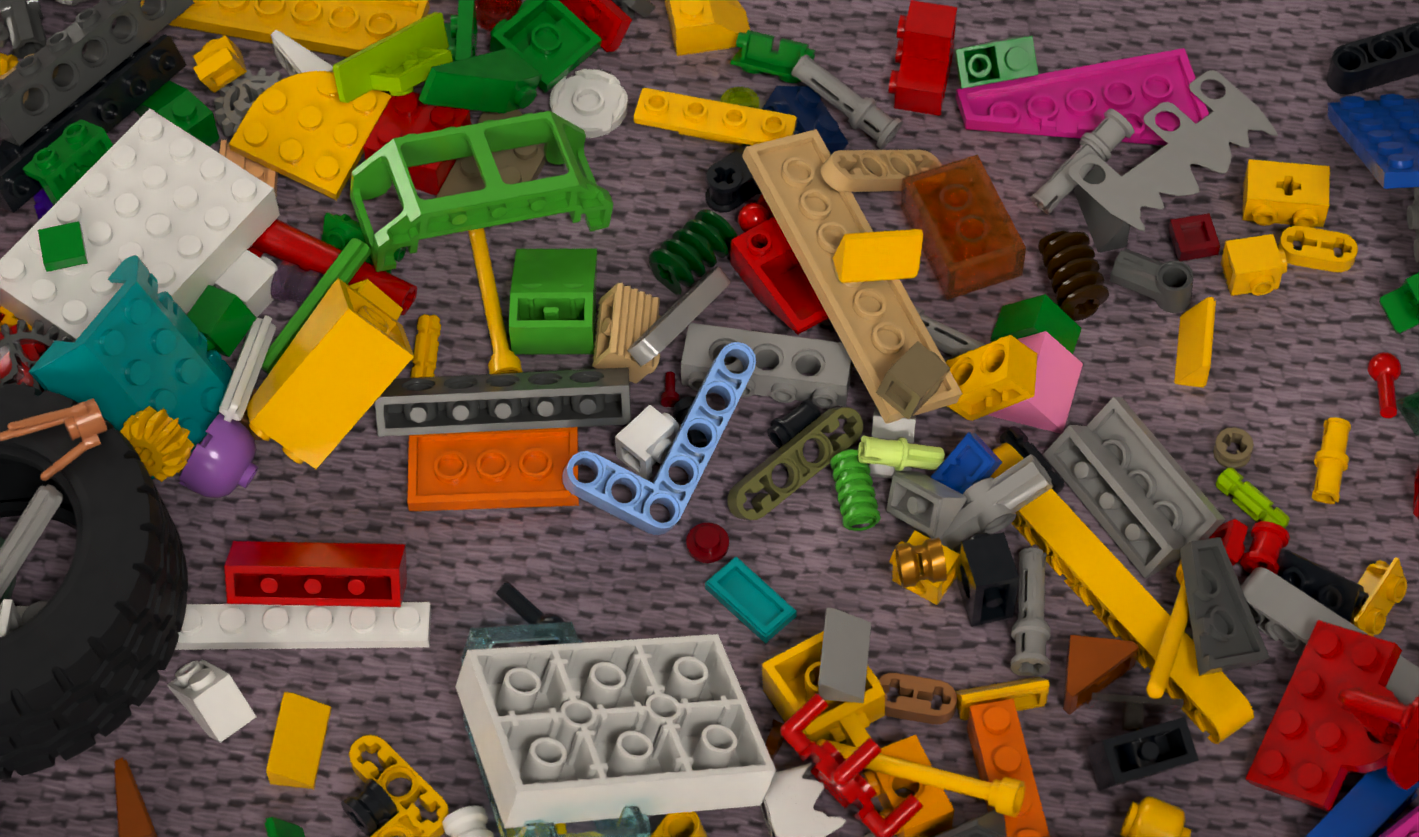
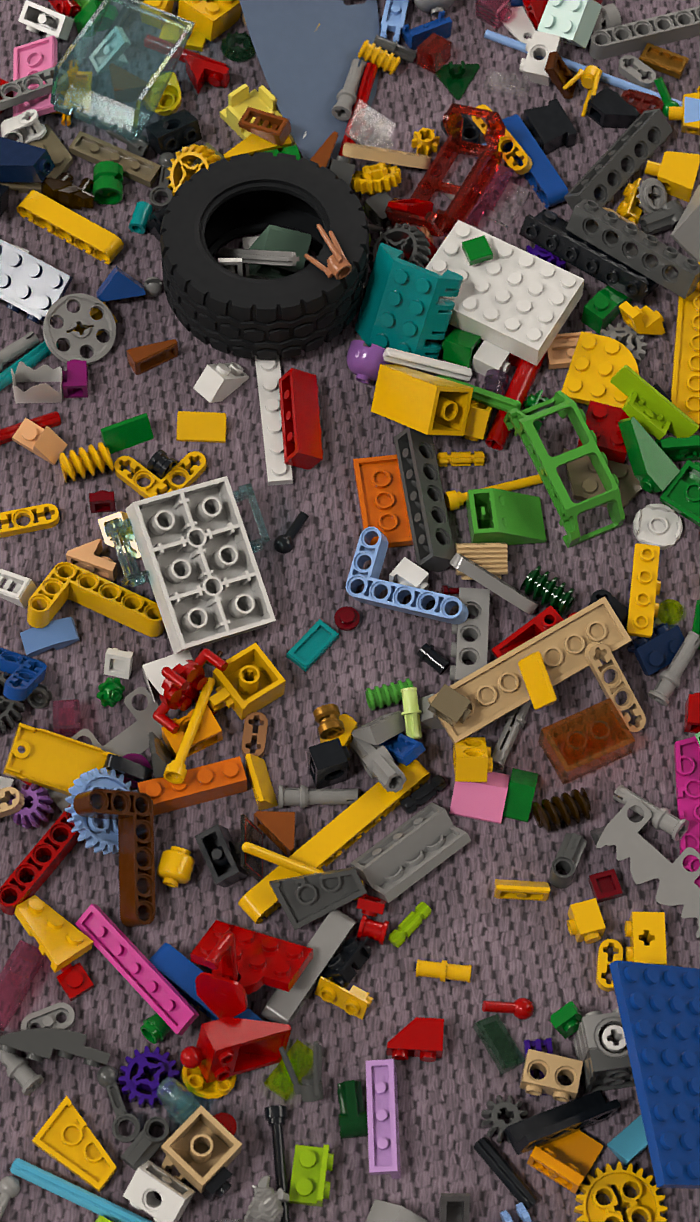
camera: 80 degrees right, 5 degrees up
(68, 158) = (549, 248): green bracket -> none
(158, 441) = (359, 319): yellow gear -> none
(295, 57) = (655, 364): white slope -> none
(793, 459) = (406, 656): olive beam -> none
(844, 657) = (259, 680): light grey slope -> none
(1237, 436) = (451, 919): dark tan bush -> none

